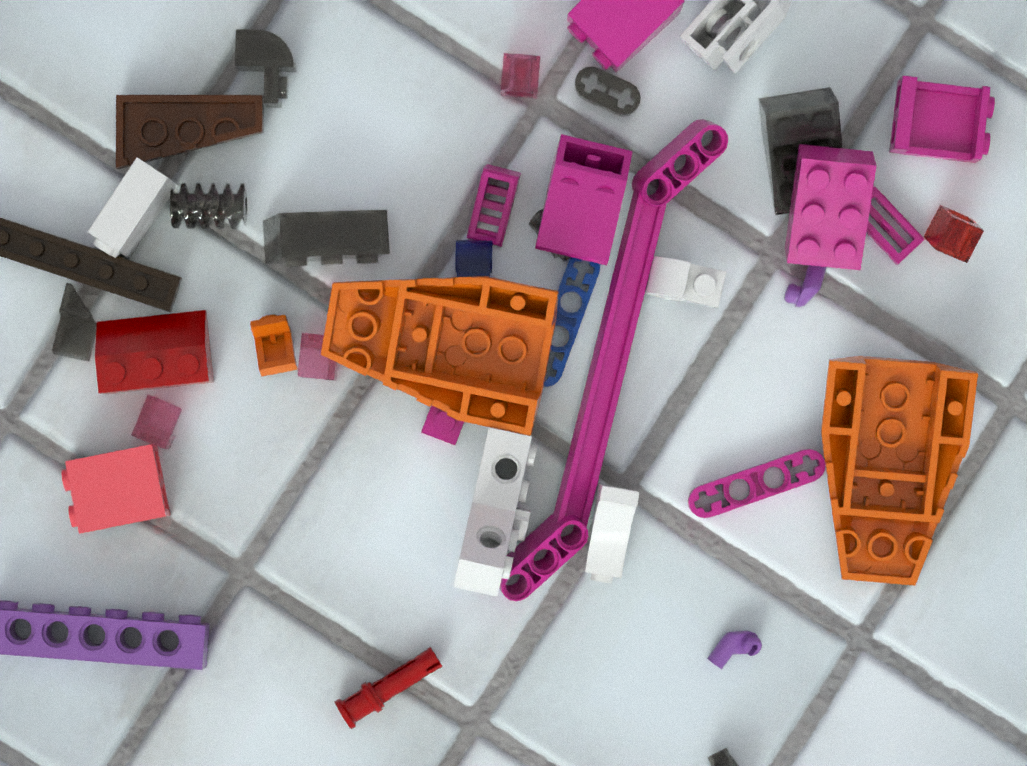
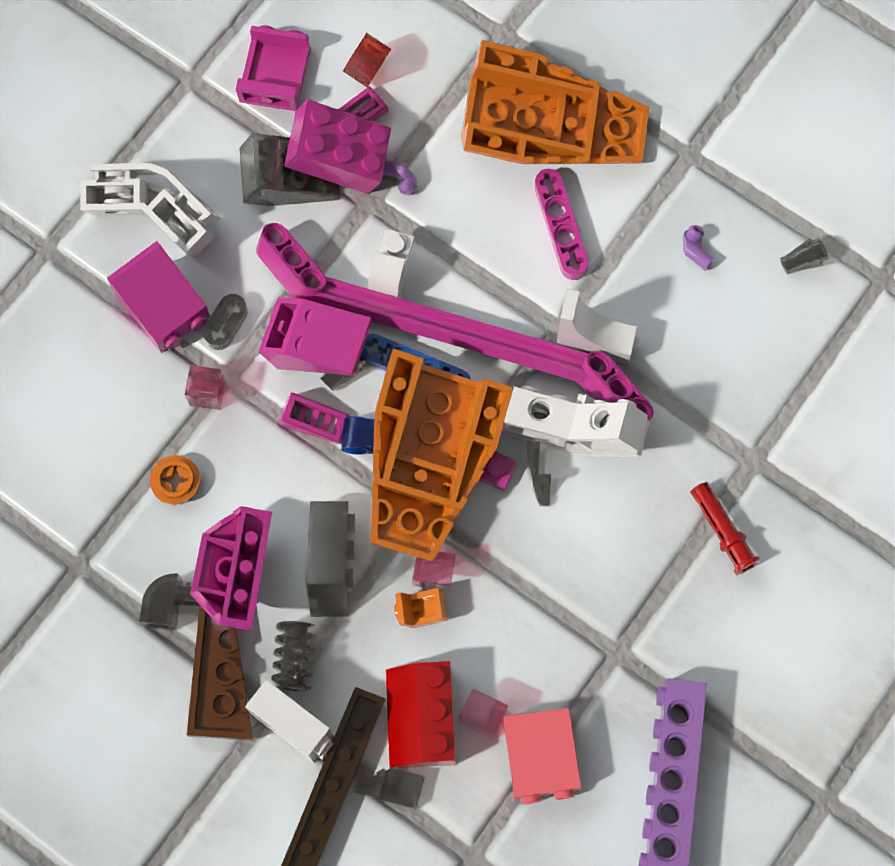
camera: 85 degrees left, 15 degrees down
(300, 127) = (231, 567): none -> dark pink wedge
(422, 40) = (165, 470): none -> orange gear
(428, 473) = (539, 482): none -> clear smoke slope

